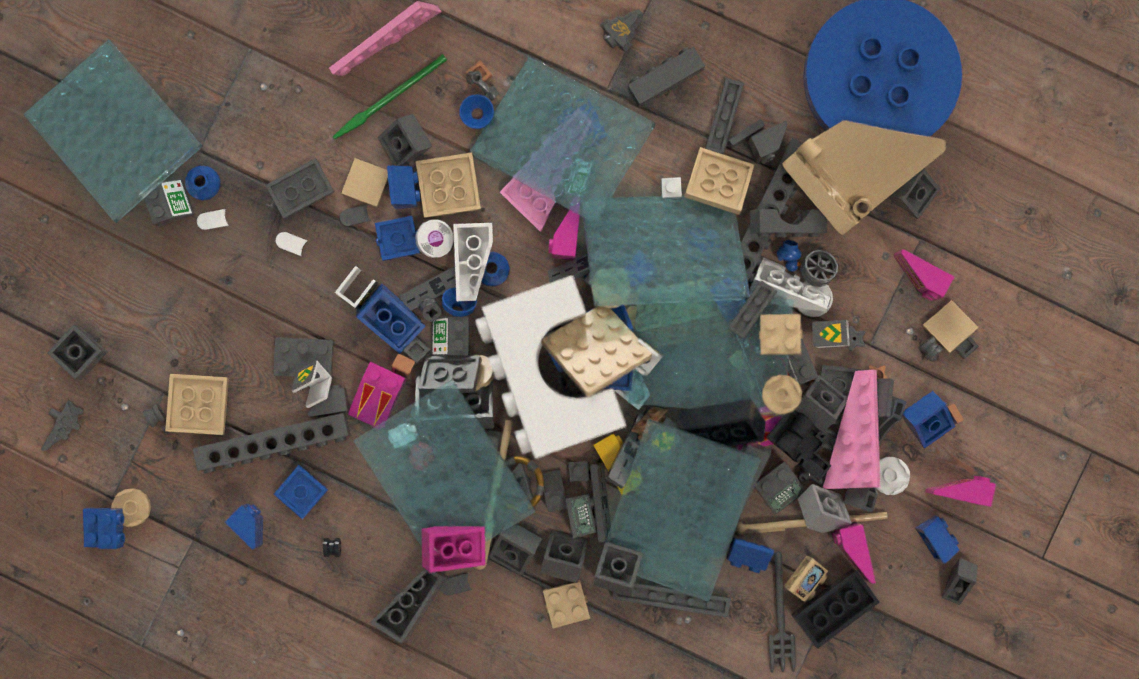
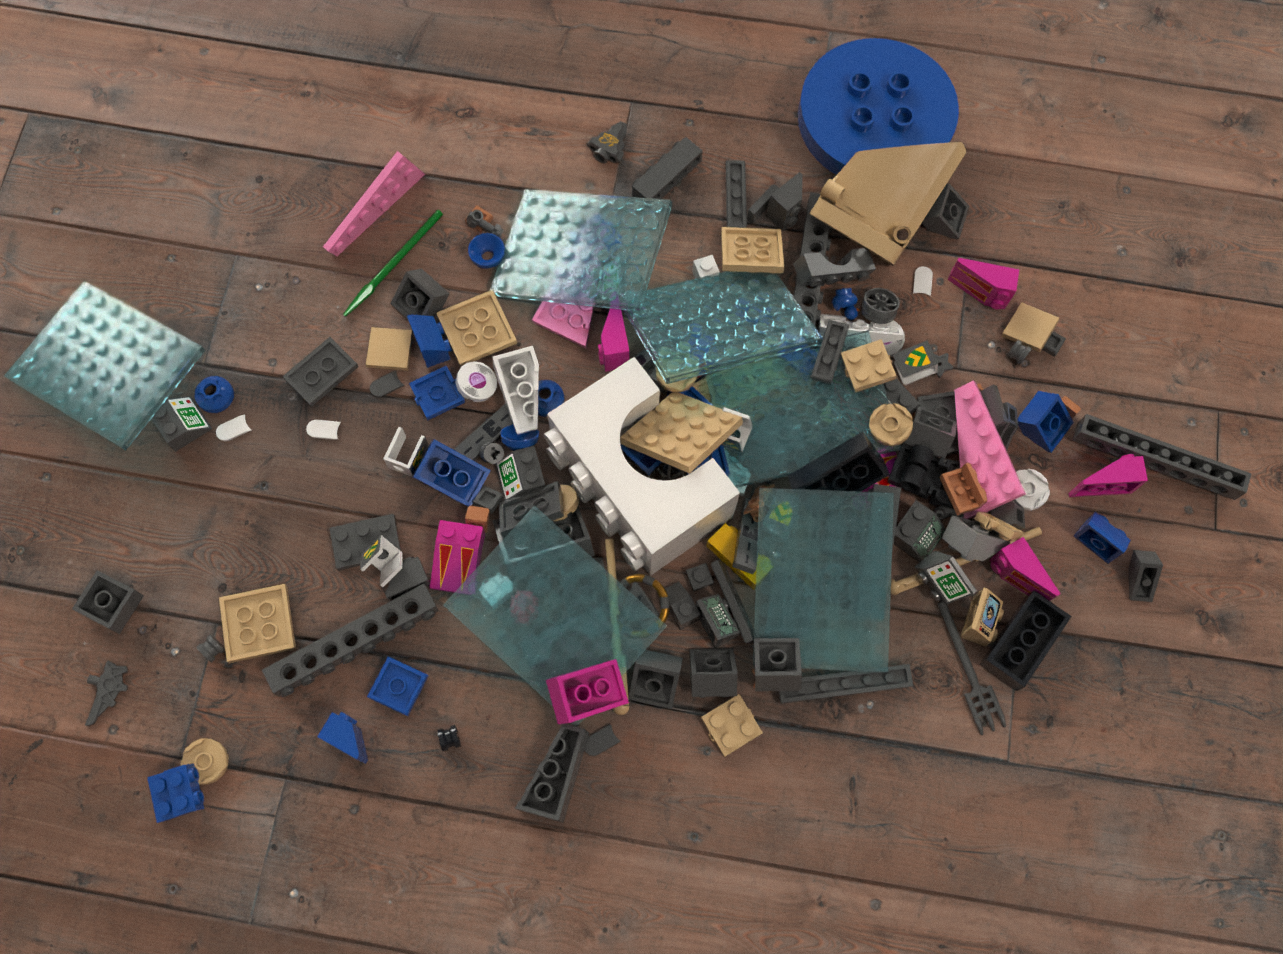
camera: 25 degrees left, 15 degrees down
(749, 554) = (914, 608): blue slope -> none
(783, 537) = (944, 578): none -> slope
(828, 466) = (964, 489): none -> nougat bracket
(844, 503) = (1004, 529): none -> tan plate
(869, 251) = (923, 280): none -> white piece
(1018, 483) = (1162, 457): none -> dark grey brick

